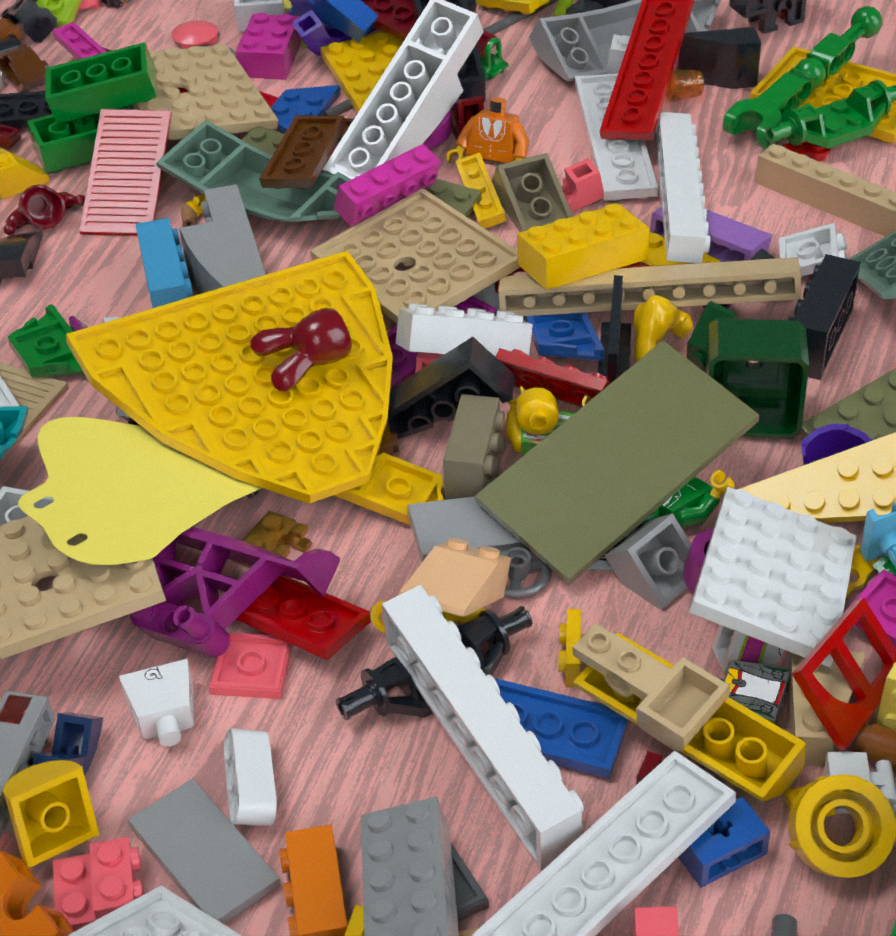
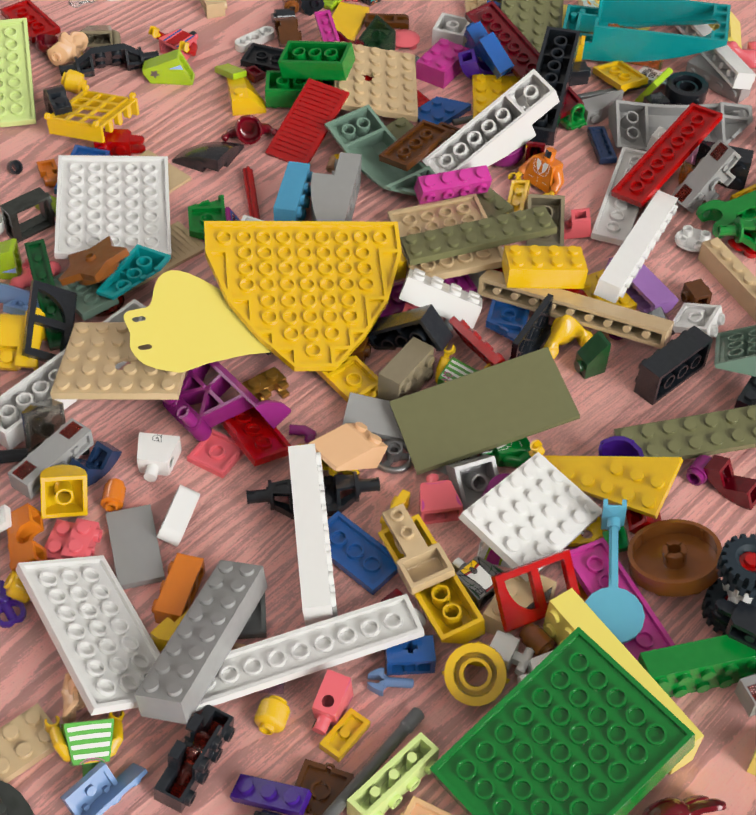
camera: 20 degrees right, 5 degrees up
(89, 288) = (250, 191): none -> red axle
(103, 26) = (349, 19): none -> yellow tile
(126, 787) = (113, 495): none -> orange brick
(157, 18) = (394, 20): none -> reddish brown plate
(161, 32) = (379, 35): none -> clear green slope
(317, 340) = (343, 275): dark red piece -> none
(366, 584) = (303, 430): none -> magenta arm
(464, 237) = (478, 235): none -> olive plate
(515, 37) = (597, 107): none -> light grey slope
(537, 411) = (456, 362): yellow head -> none
(545, 84) = (601, 145): none -> dark blue plate
(625, 605) = (438, 501): none -> coral torso
(709, 896) = (385, 681): none -> medium blue bar
(716, 66) = (710, 170): none -> light grey piece
(735, 159) = (691, 238): none -> white dish
(774, 384) = (601, 388): dark green plate -> none
(787, 220) = (696, 292): none -> reddish brown brick

